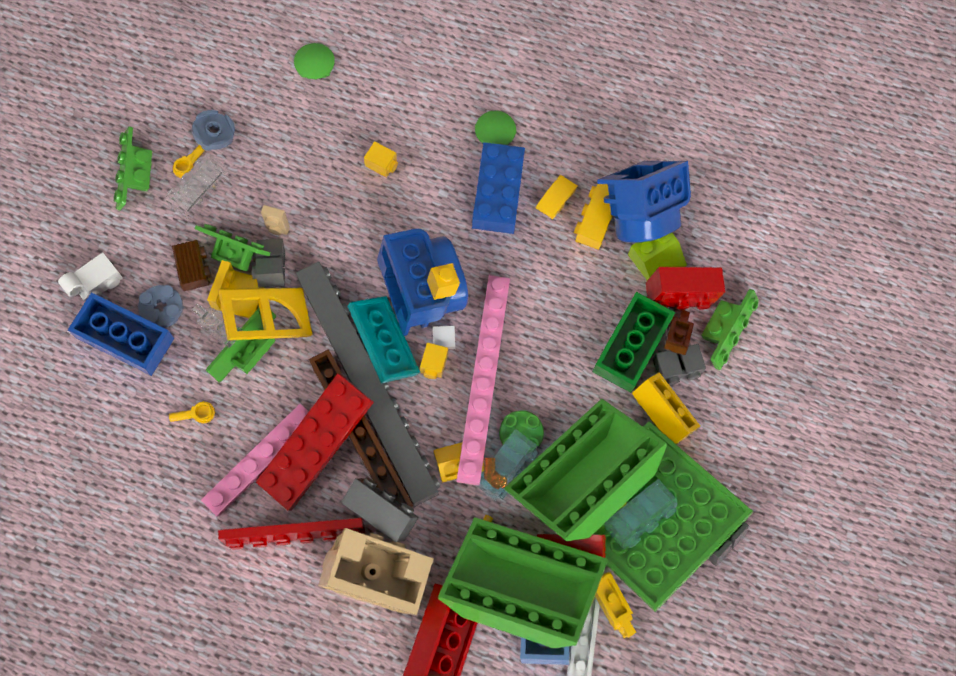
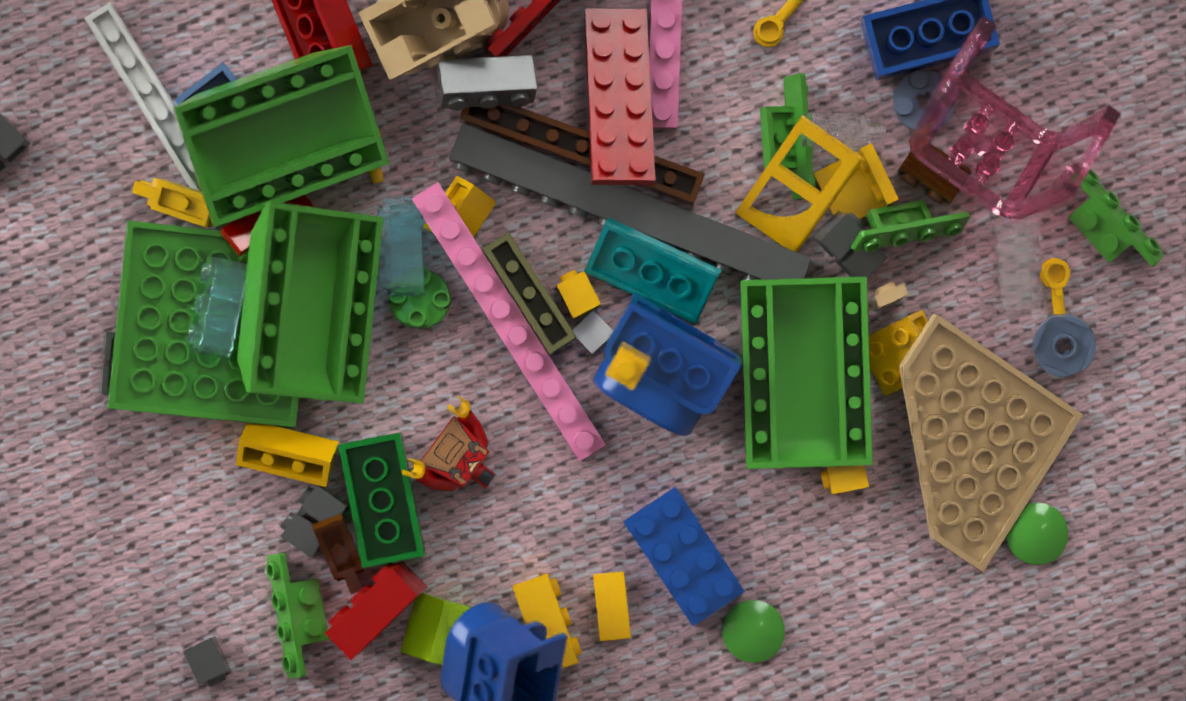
camera: 145 degrees right, 15 degrees up
(93, 277) = (1021, 63): white hinge -> none
(149, 258) = (1016, 204): none -> clear pink windscreen
(296, 192) = (890, 347): none -> yellow bracket
(298, 120) = (977, 438): none -> tan plate
(350, 215) = (806, 372): none -> bright green slope
(460, 381) = (529, 294): none -> olive brick
(492, 476) = (408, 217): clear orange arm -> none
(574, 333) = (455, 454): none -> torso
(797, 341) = (207, 662): none -> dark grey brick

